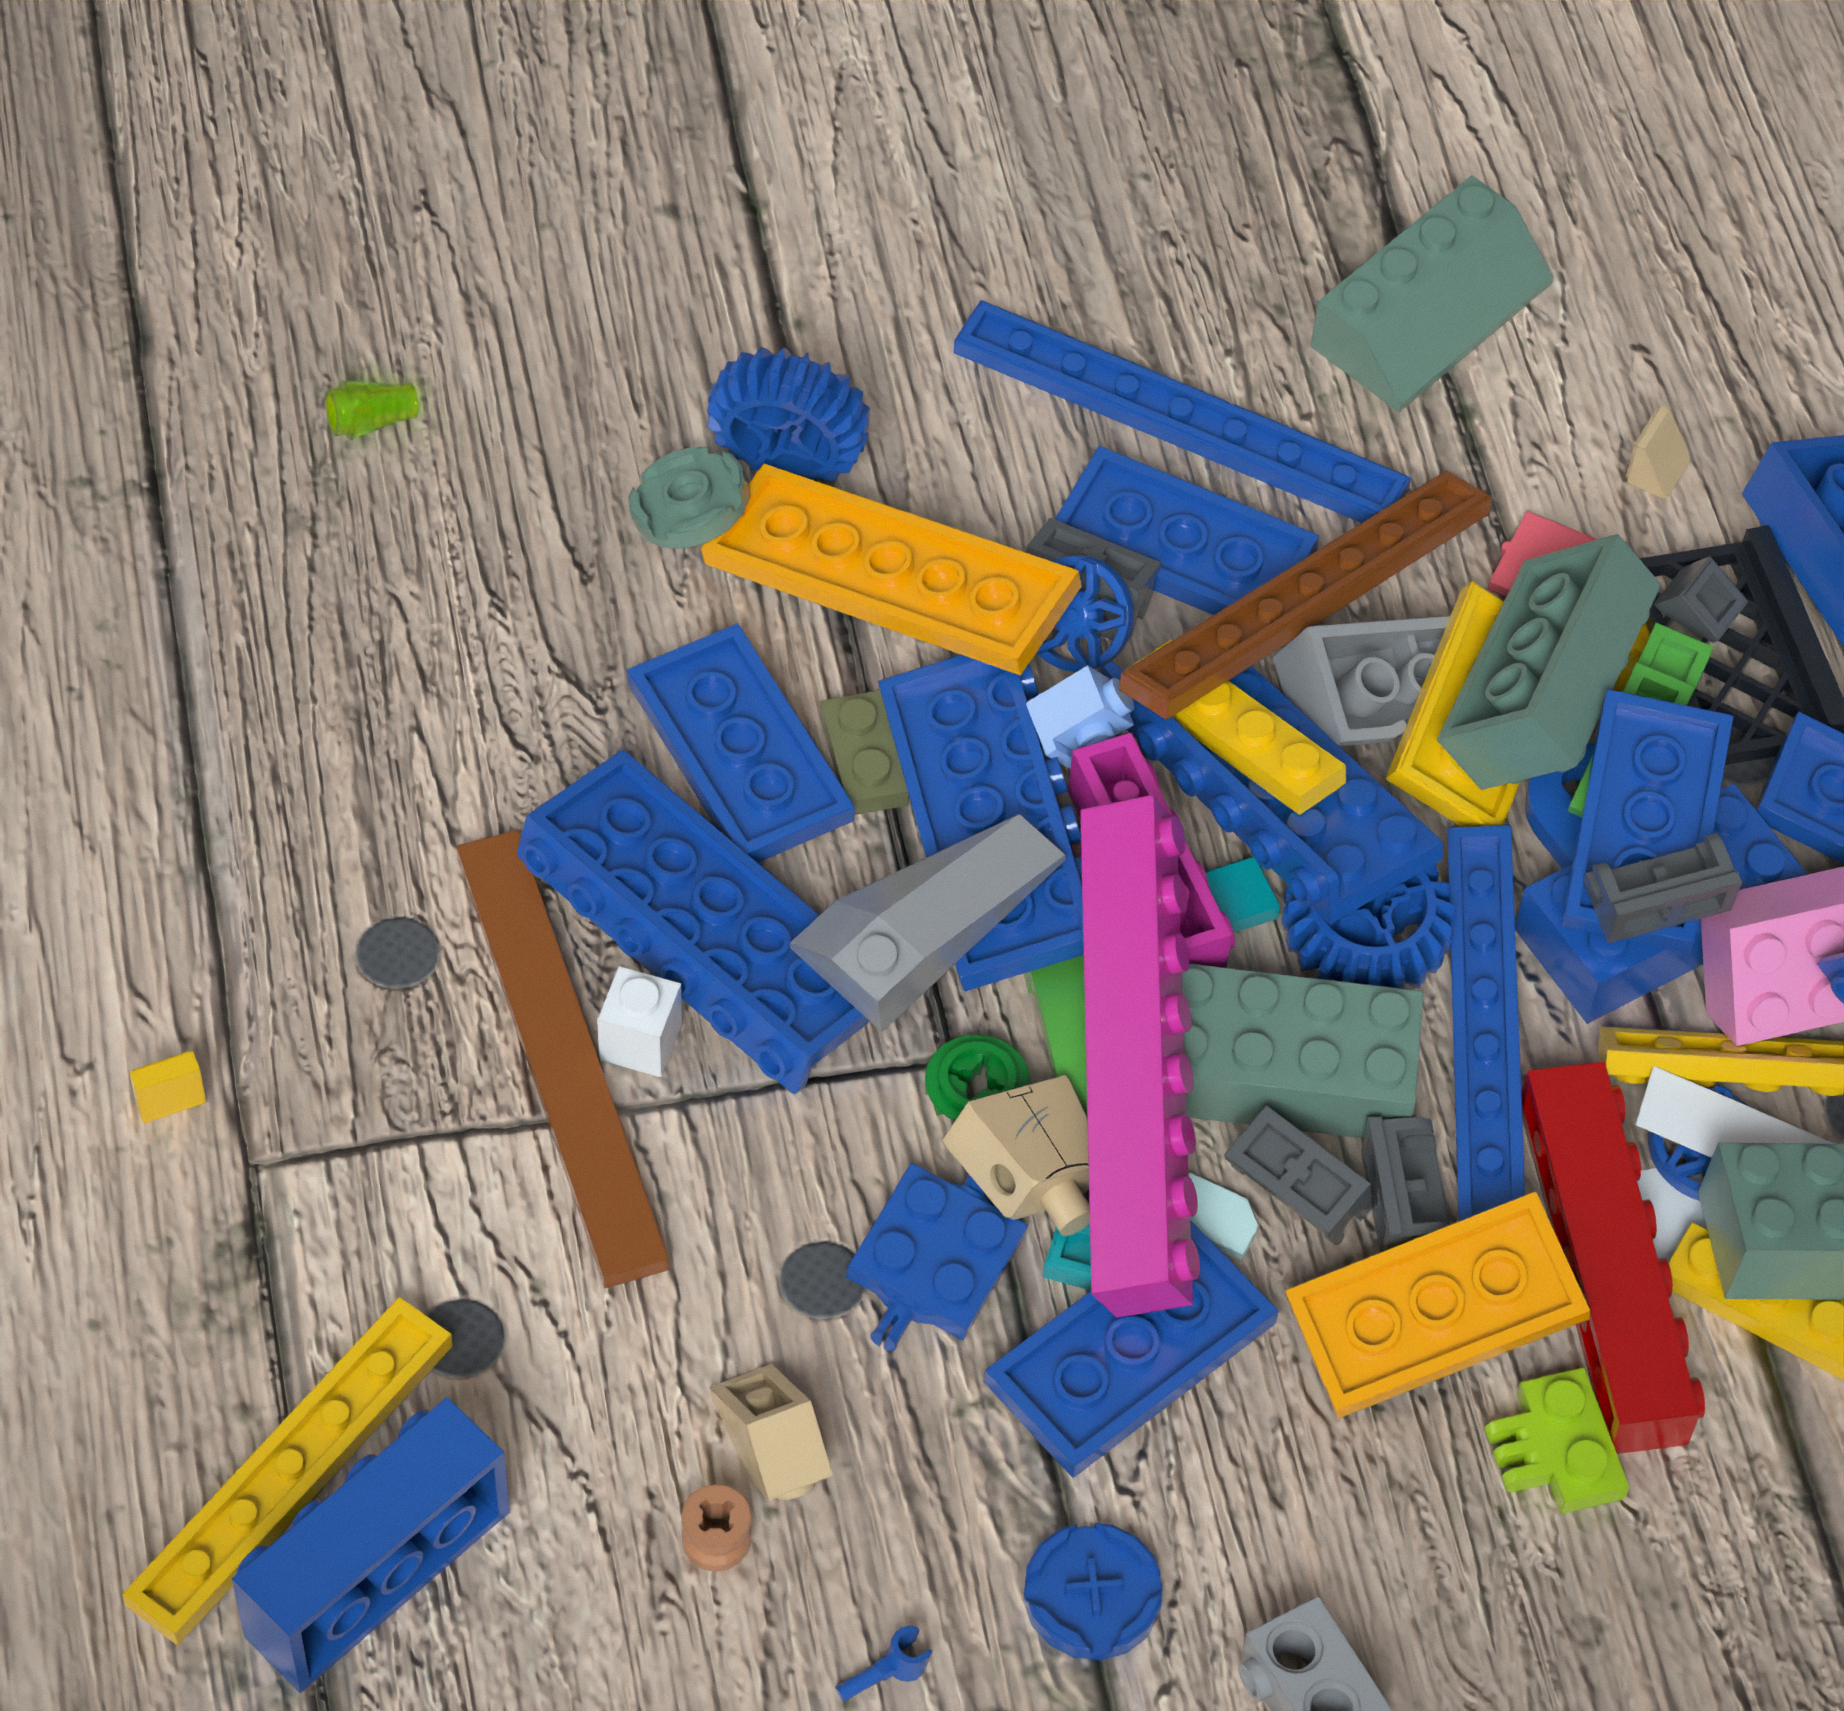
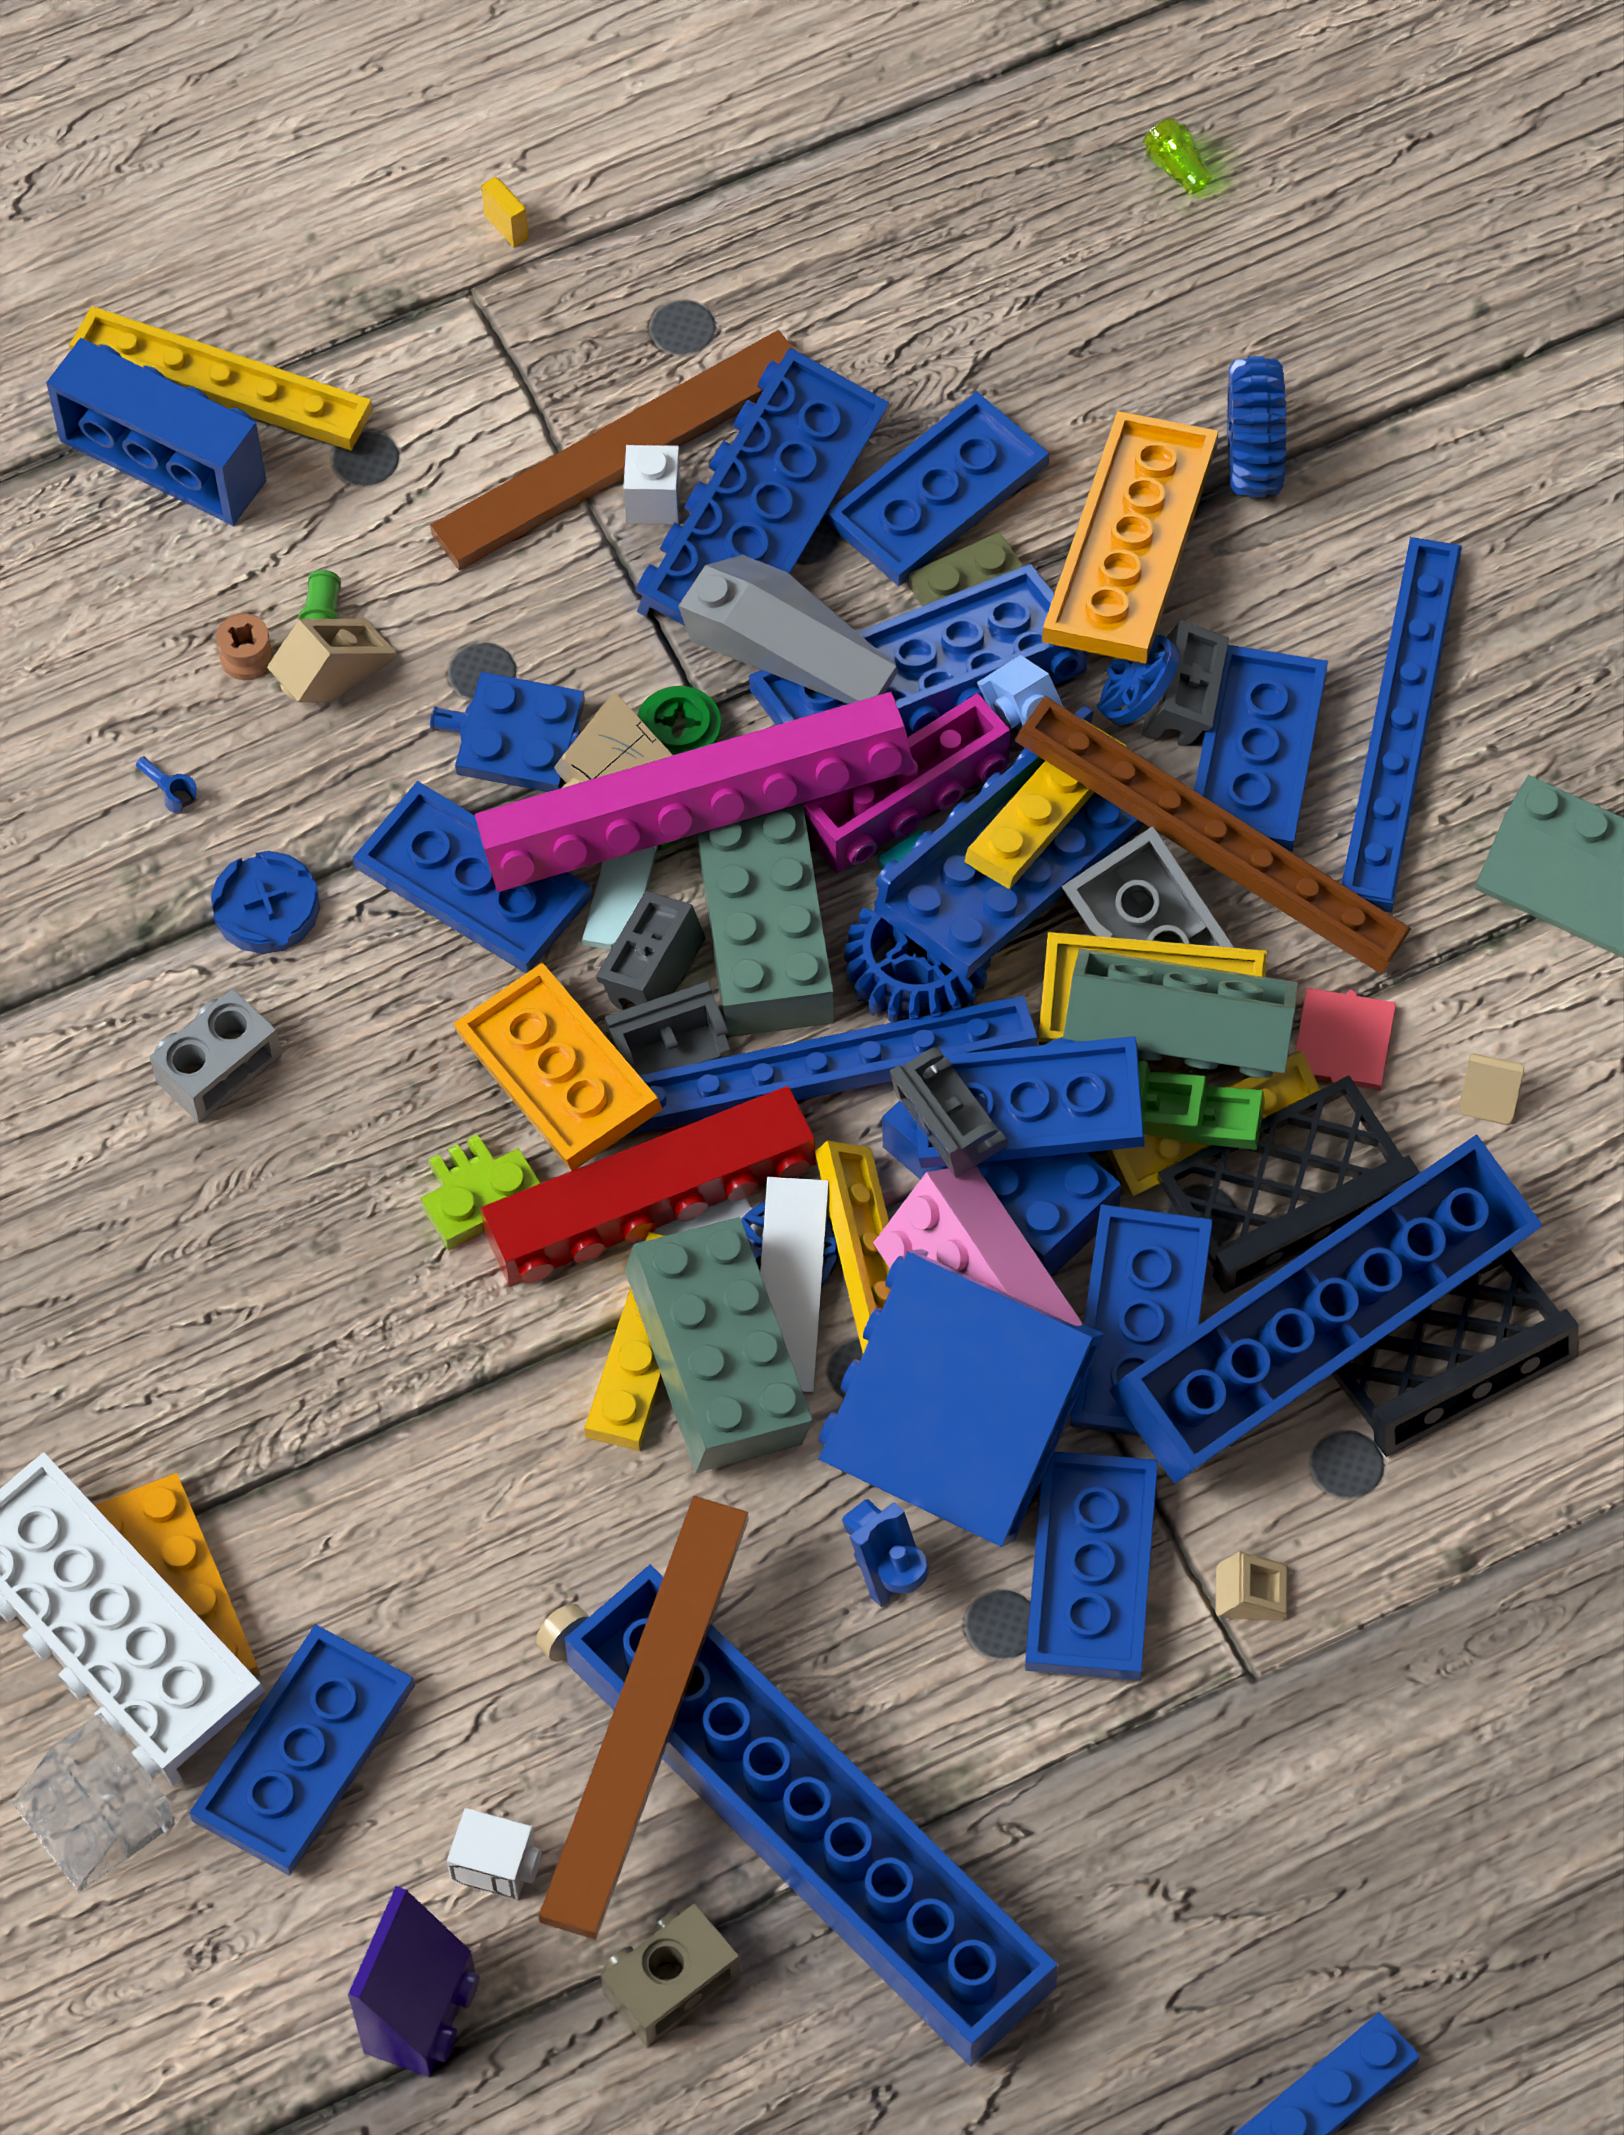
camera: 80 degrees right, 5 degrees up
(682, 1427) = (321, 596): none -> bright green pin
(689, 497) = (1167, 391): sand green tile -> none
(1702, 599) = (1320, 1137): dark grey slope -> none

